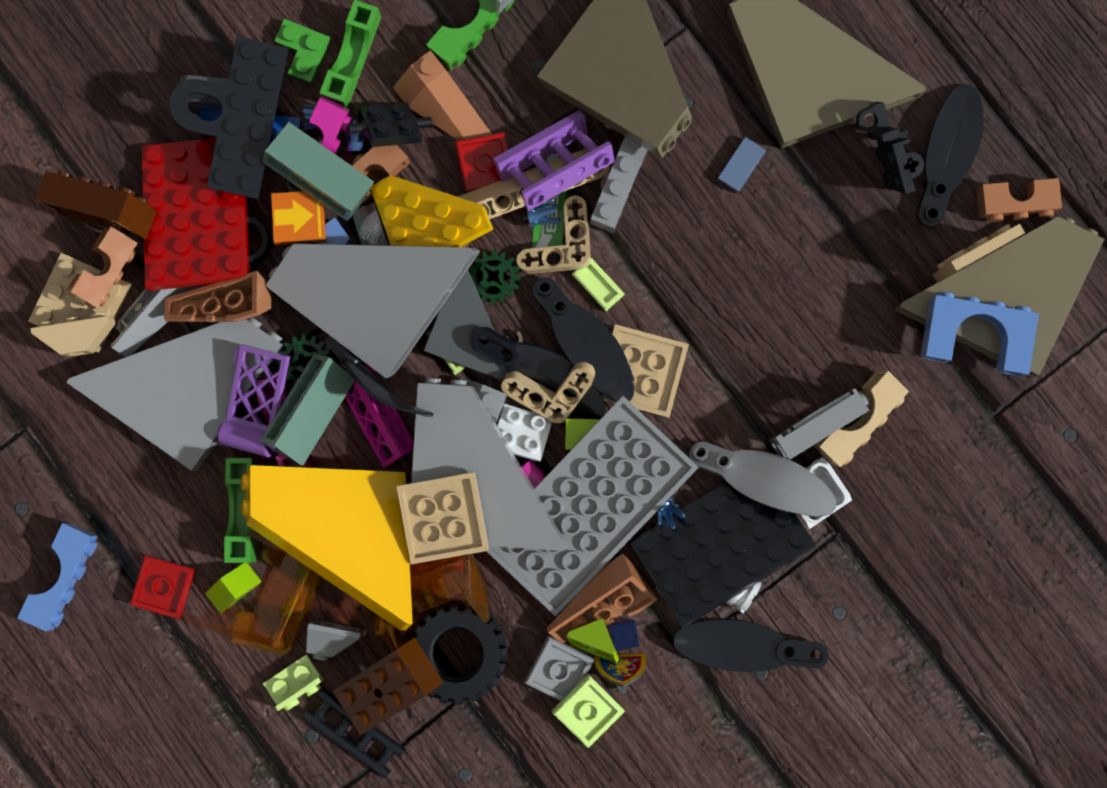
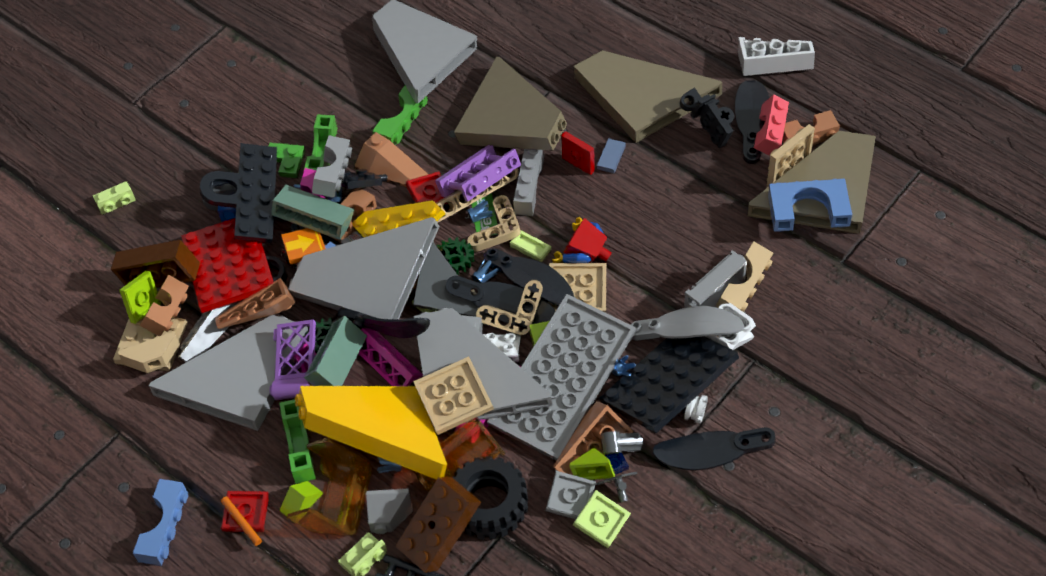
camera: 10 degrees left, 30 degrees down
(60, 56) = (114, 198): none -> yellowish green bracket
(70, 248) = (139, 296): none -> lime plate
(154, 605) = (241, 521): none -> orange bar
(345, 131) = (329, 178): none -> light grey arch
(522, 317) = (480, 276): none -> flat silver piece
(631, 618) = (618, 442): none -> dark grey piece
(669, 307) = (584, 244): none -> red torso
(696, 158) = (577, 152): none -> red plate
(965, 202) = (774, 114): none -> coral arch
(1009, 58) = (774, 56): none -> white wedge

